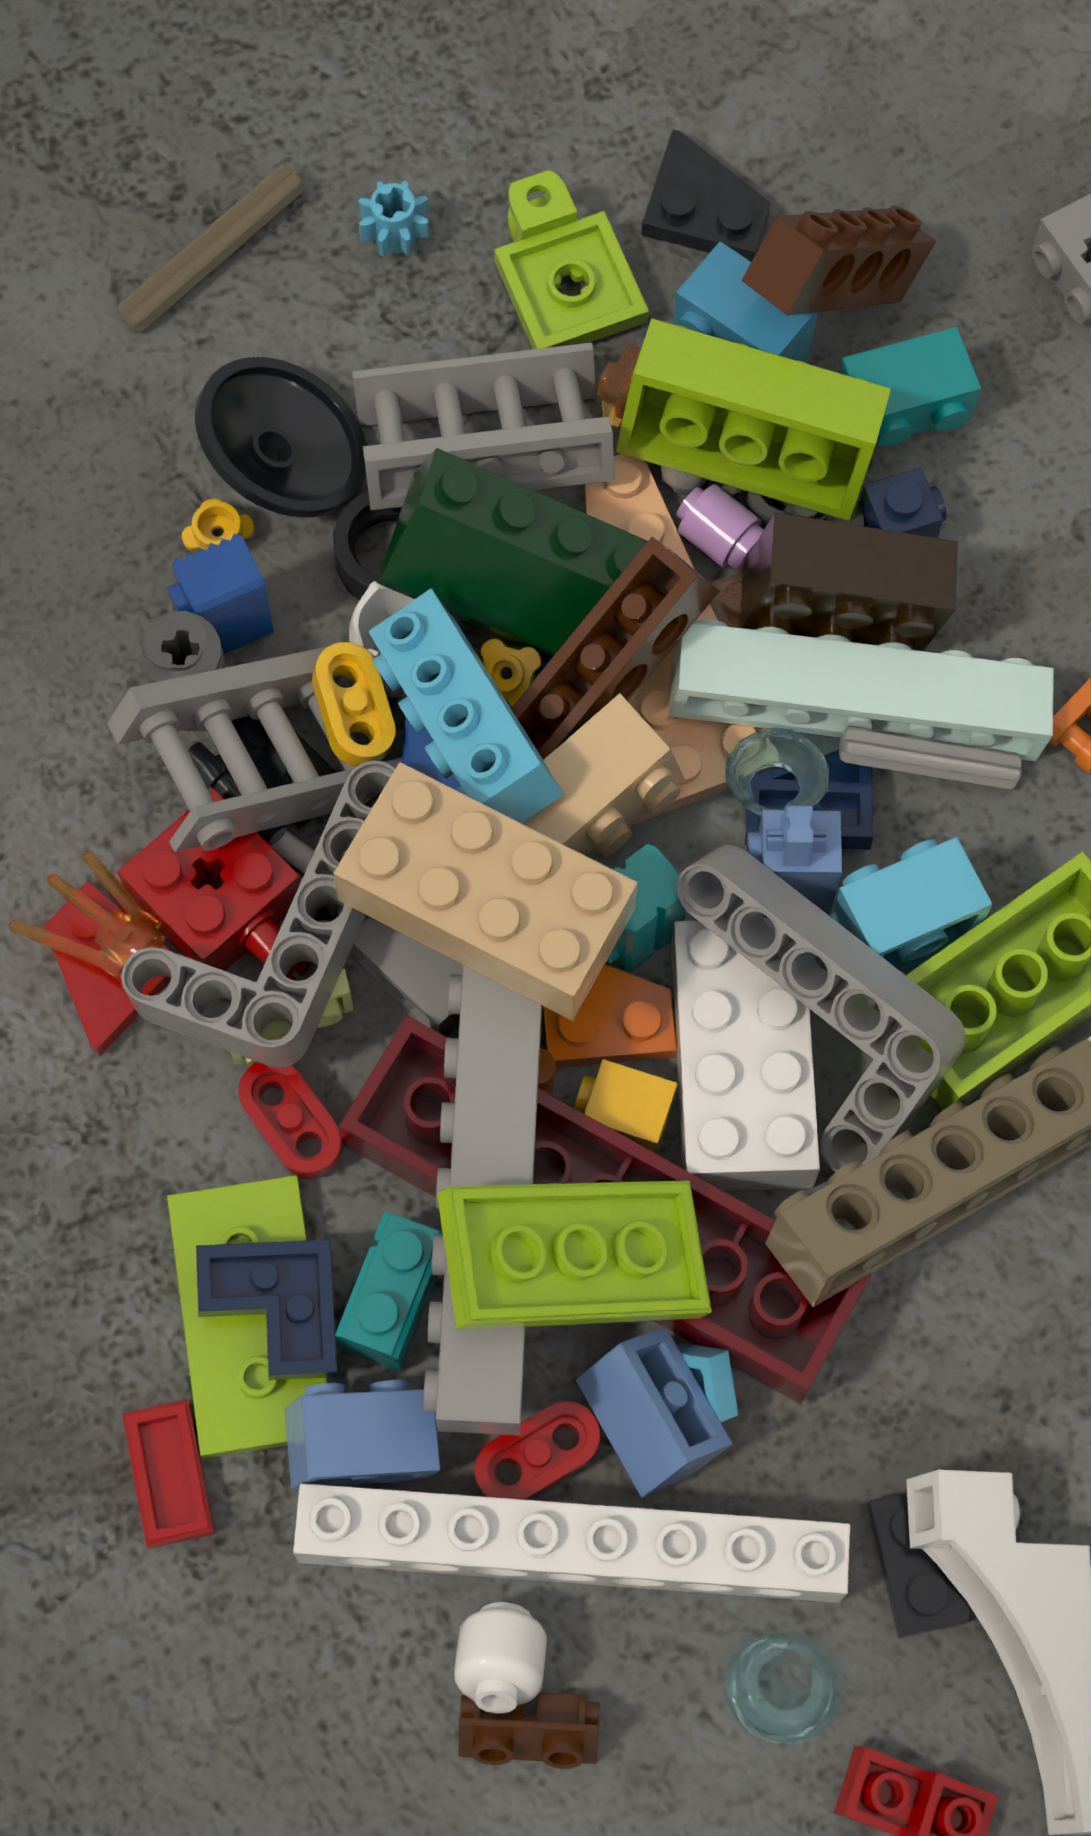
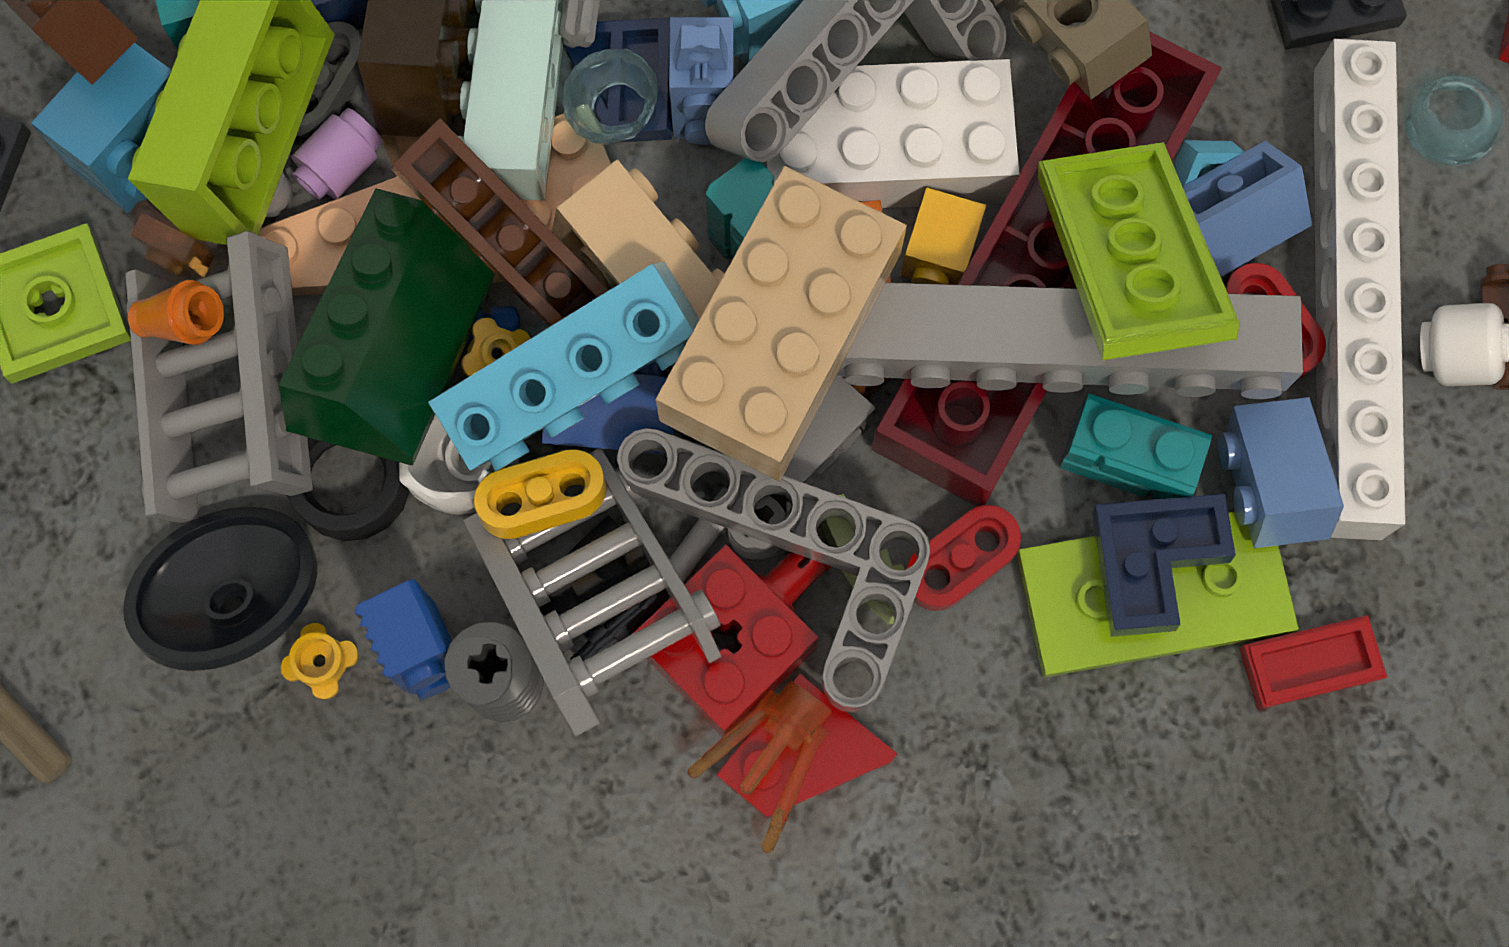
camera: 90 degrees left, 5 degrees up
(538, 384) = (180, 314): none -> orange cone

